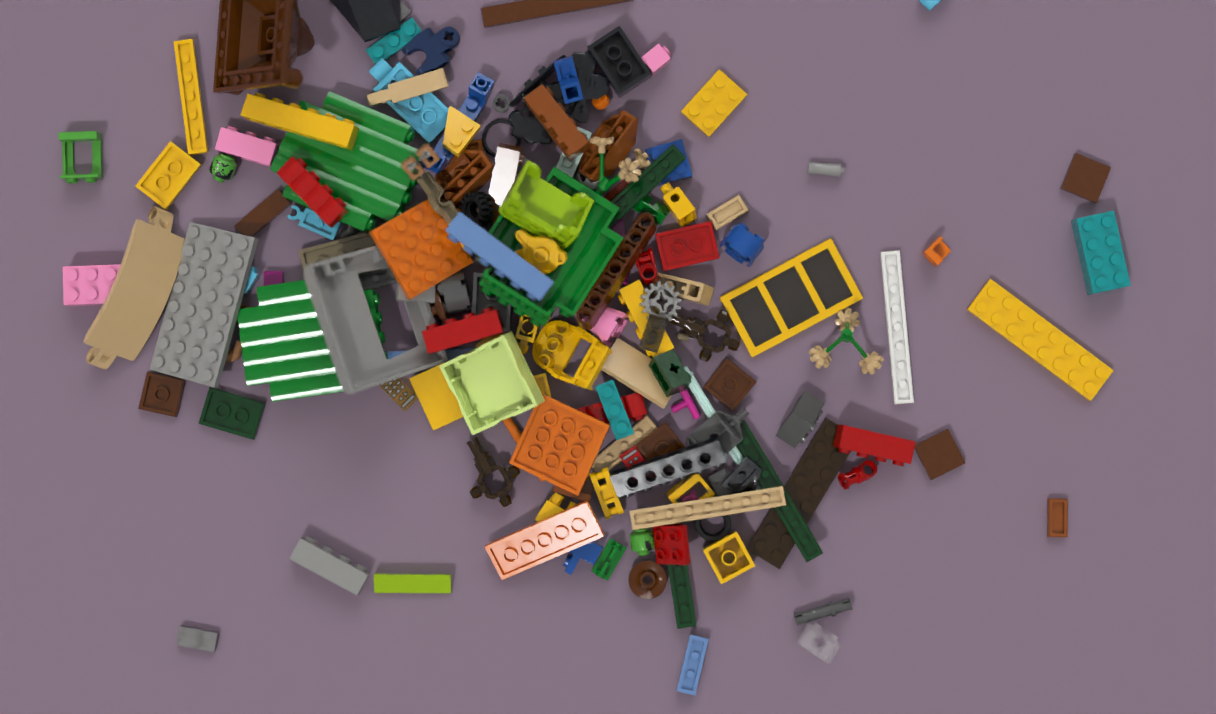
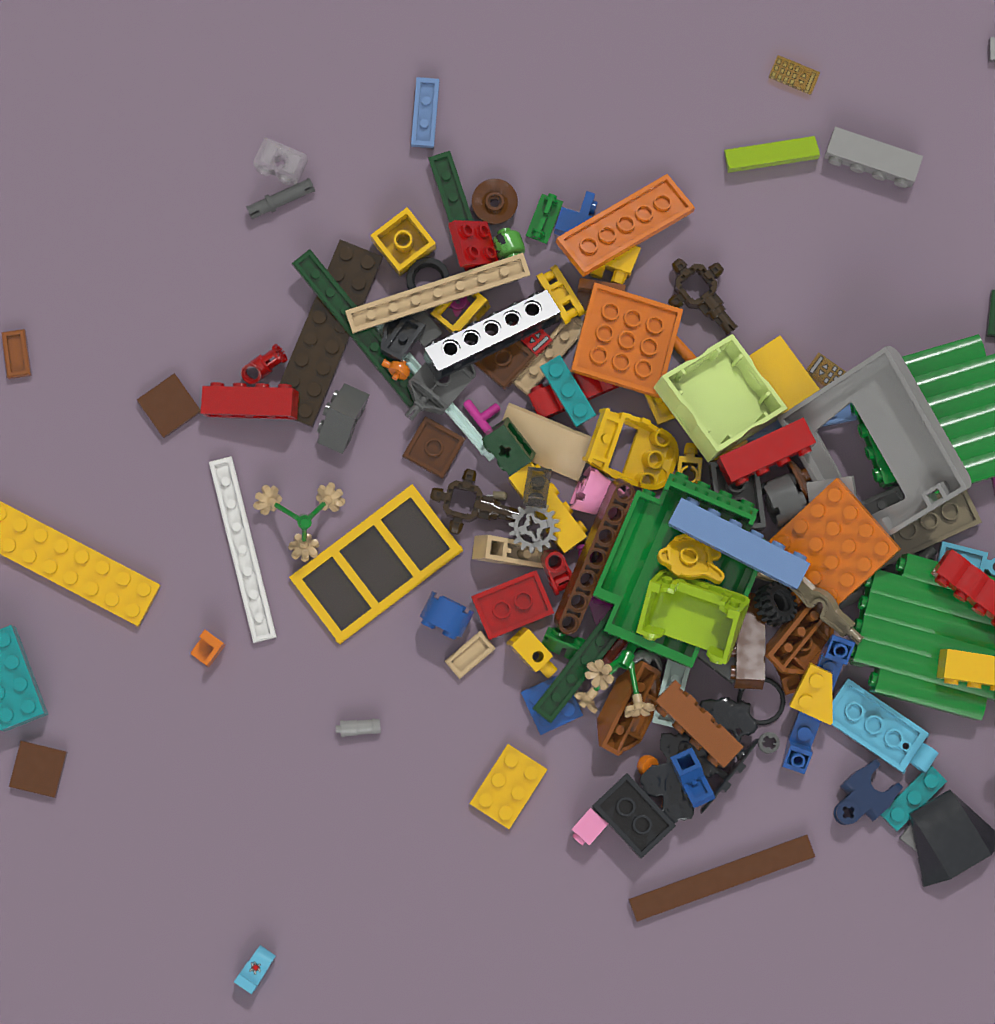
camera: 170 degrees right, 5 degrees down
(382, 647) = (794, 74): none -> clear yellow tile
(410, 88) = (883, 741): tan piece -> none
(410, 162) = (854, 652): medium nougat piece -> none
(750, 451) = (397, 369): none -> orange piece

